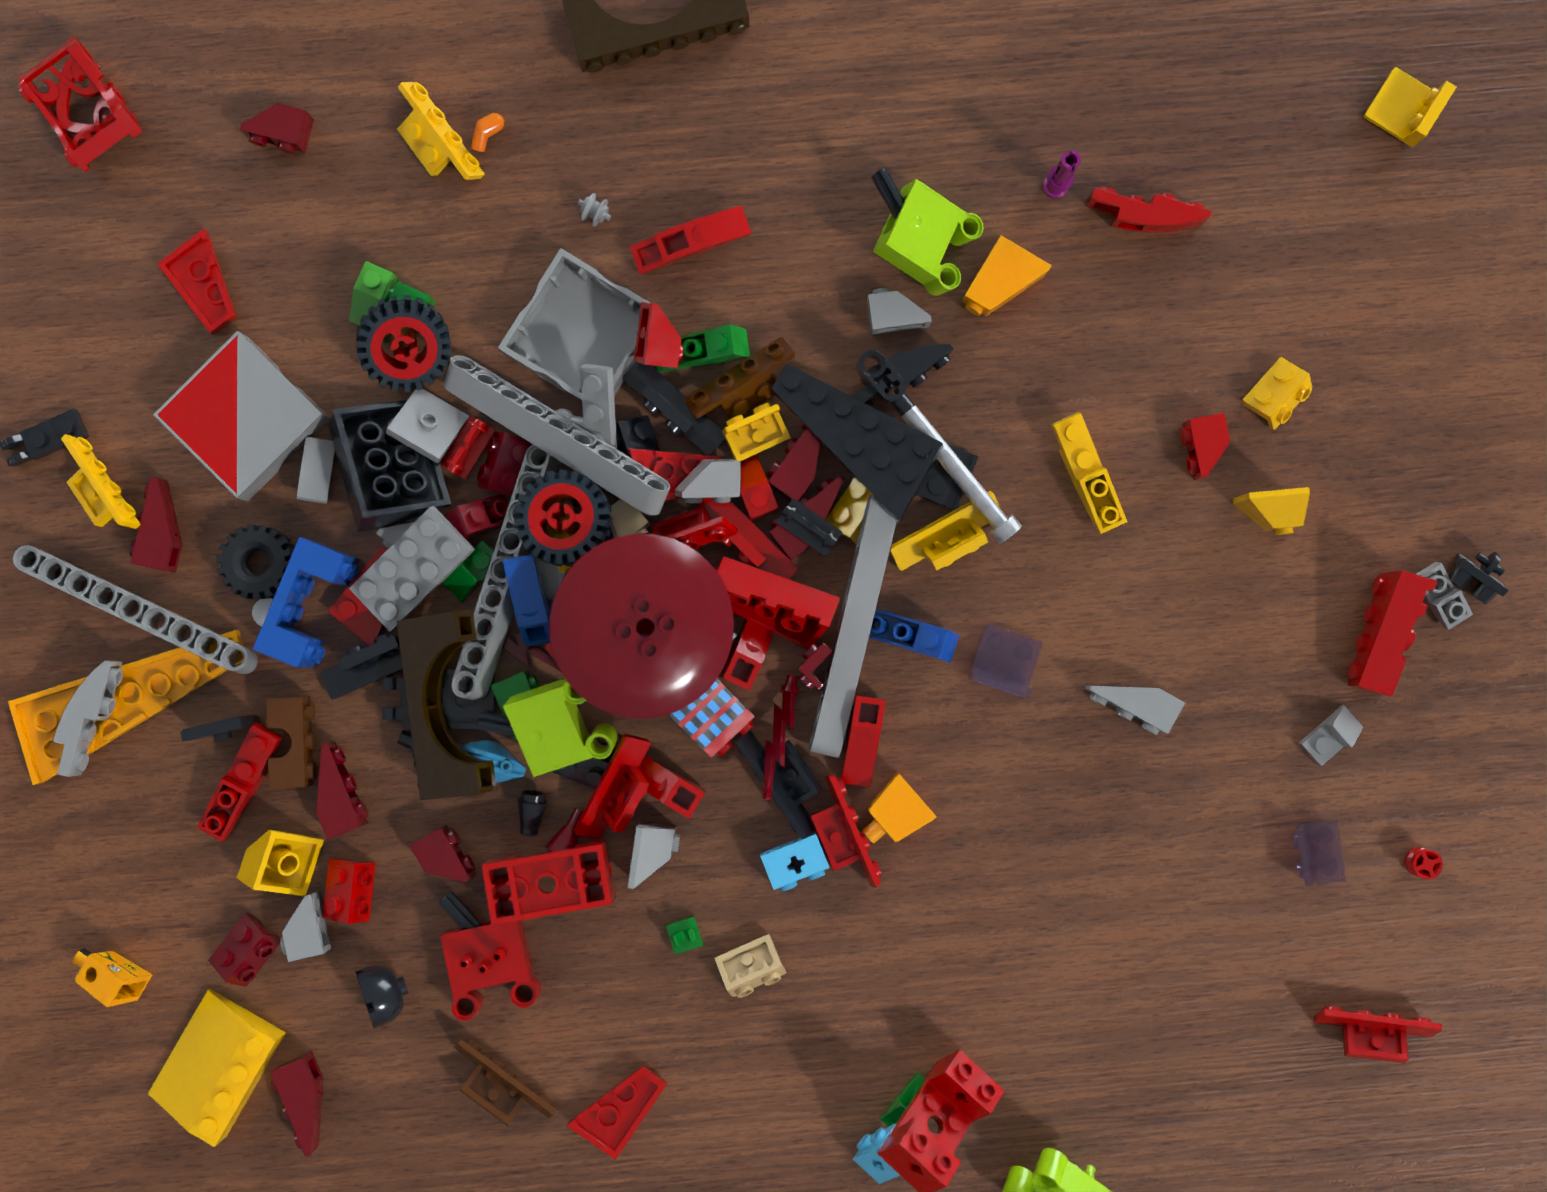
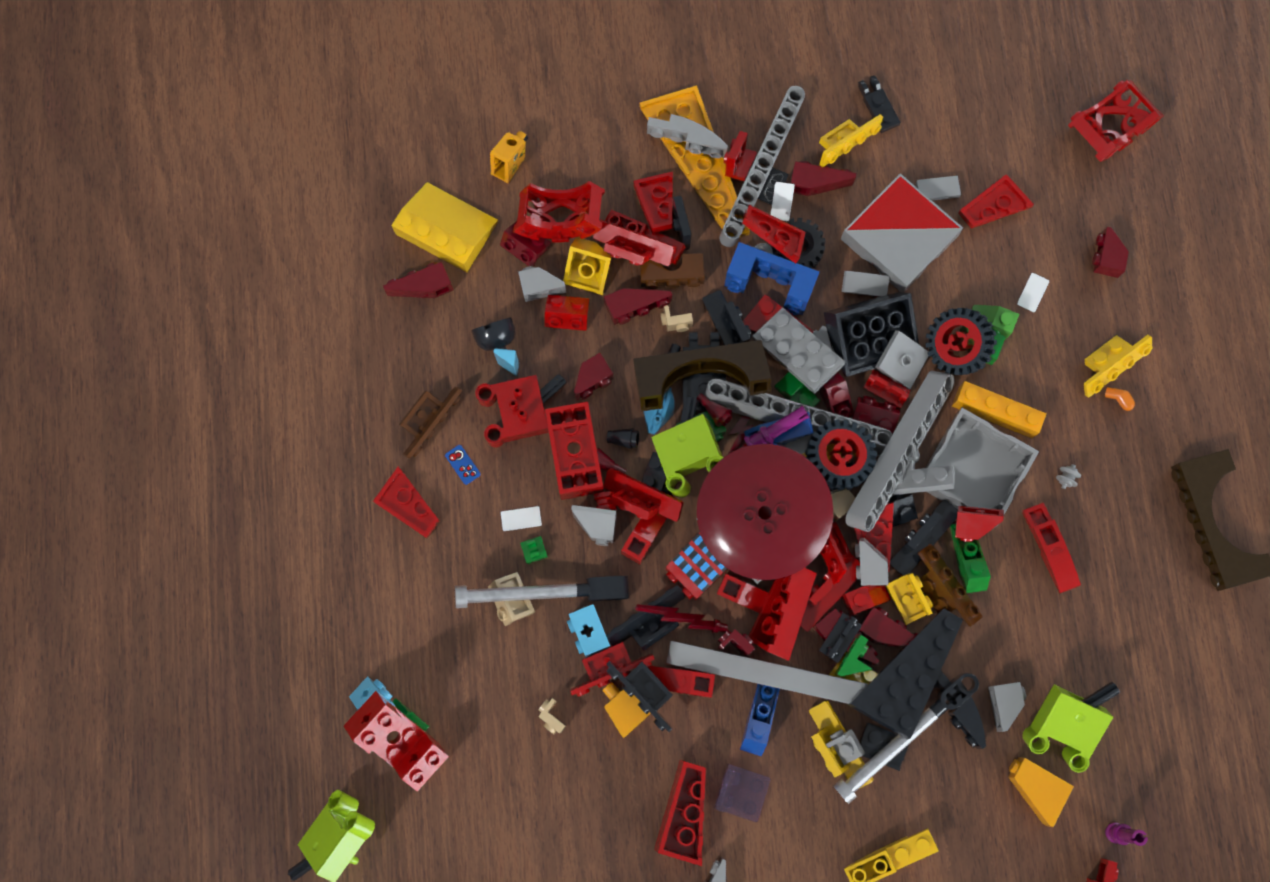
camera: 90 degrees right, 10 degrees down
(123, 643) = (739, 158): none -> red bracket
(166, 594) = (768, 189): none -> black sticker
(175, 358) = (940, 187): none -> light grey tile
(181, 764) = (656, 200): none -> red wing
(181, 871) = (582, 200): none -> red fence
(190, 582) = (782, 200): none -> white sticker
(238, 596) = (776, 232): none -> red wing
(253, 800) = (633, 245): none -> red bracket
(332, 237) = (1033, 292): none -> white sticker
(367, 731) = (680, 322): none -> tan bracket
(417, 974) = (508, 360): none -> medium azure slope
(500, 297) = (999, 409): none -> light orange brick
(500, 682) = (718, 413): none -> dark red cone
(533, 616) = (768, 434): none -> magenta pin
(564, 1034) = (462, 464): none -> blue sticker
(620, 841) = (603, 500): none -> red wheel
(640, 952) = (521, 518): none -> white sticker
(739, 852) = (596, 589): none -> flat silver piece
(845, 516) = (850, 663): none -> green slope
(875, 787) = (646, 688): none -> black bracket
(914, 910) = (552, 723): none -> tan bracket
(947, 525) = (846, 745): none -> light grey bracket
(1040, 739) = (684, 815): none -> red wedge

